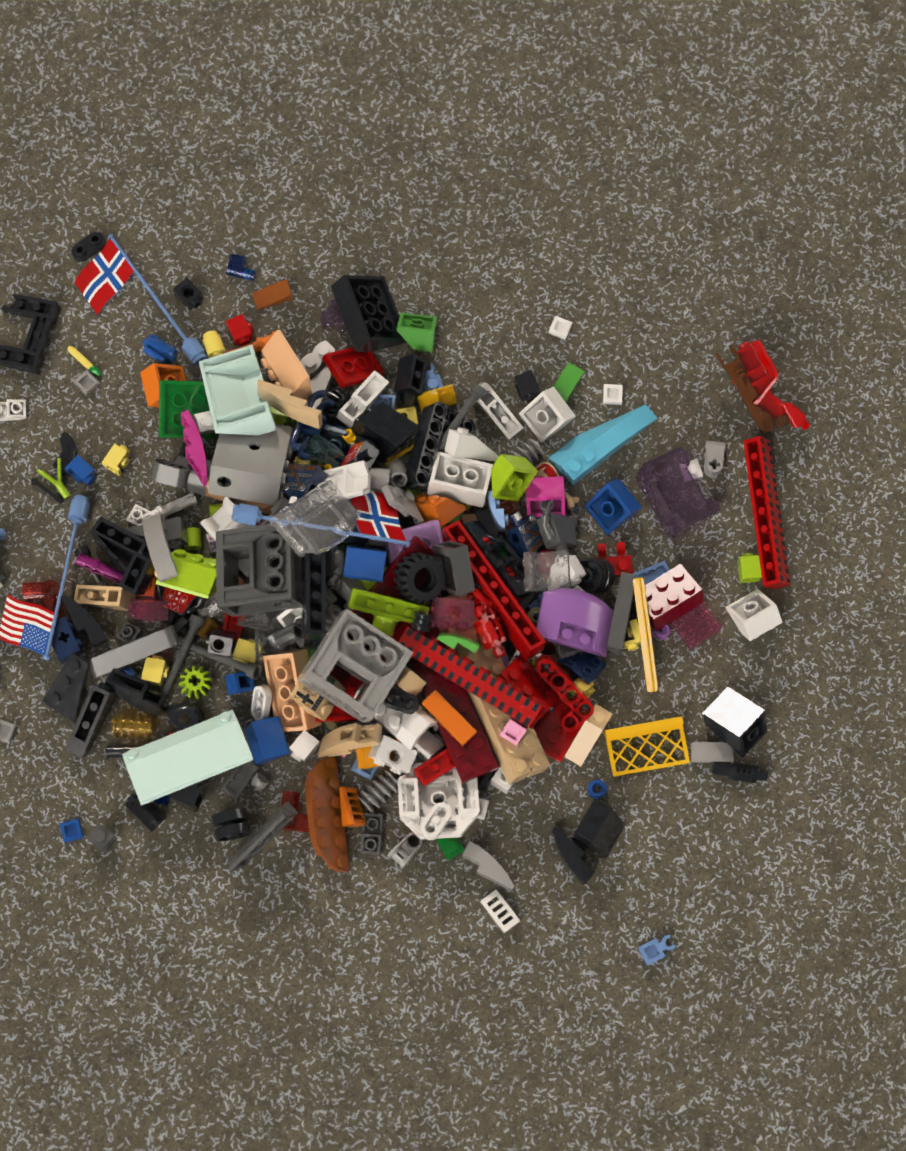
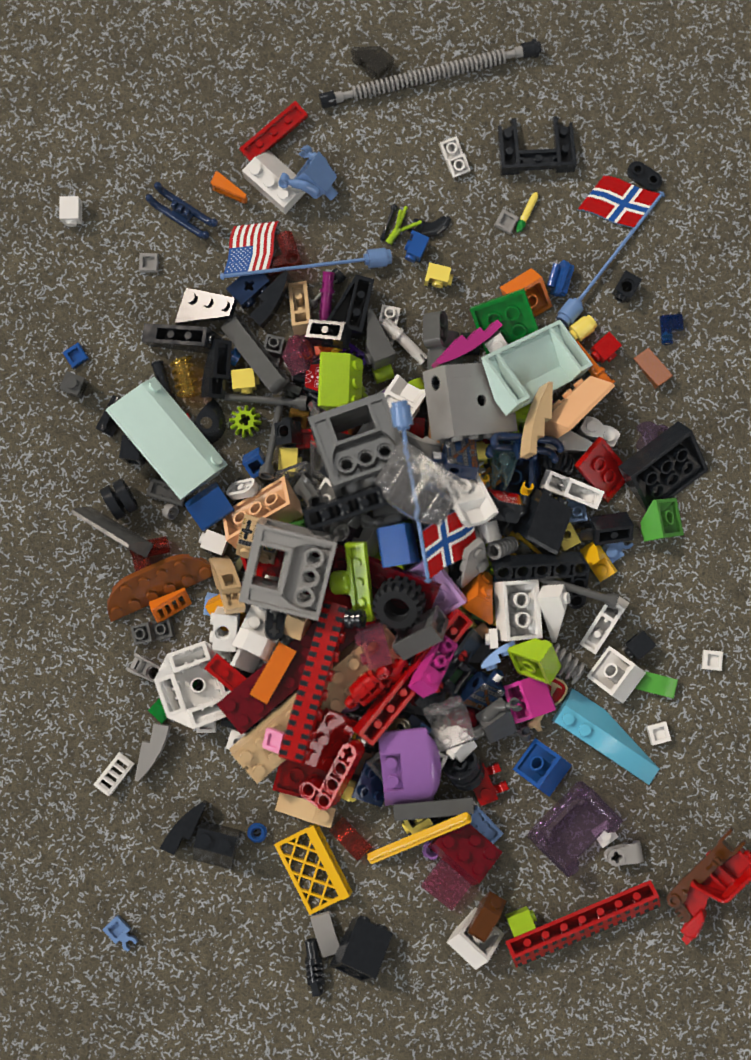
camera: 70 degrees right, 10 degrees up
(158, 547) = (356, 342): light grey slope -> none
(378, 791) = (190, 625): light grey piece -> none
(436, 822) = (171, 690): white plate -> none
(453, 639) = (348, 655): bright green slope -> none
(479, 511) = (491, 638): none -> white plate
(491, 566) = (432, 668): none -> dark pink slope
(628, 702) = (350, 838): none -> clear red slope
(735, 595) = (486, 916): none -> reddish brown slope

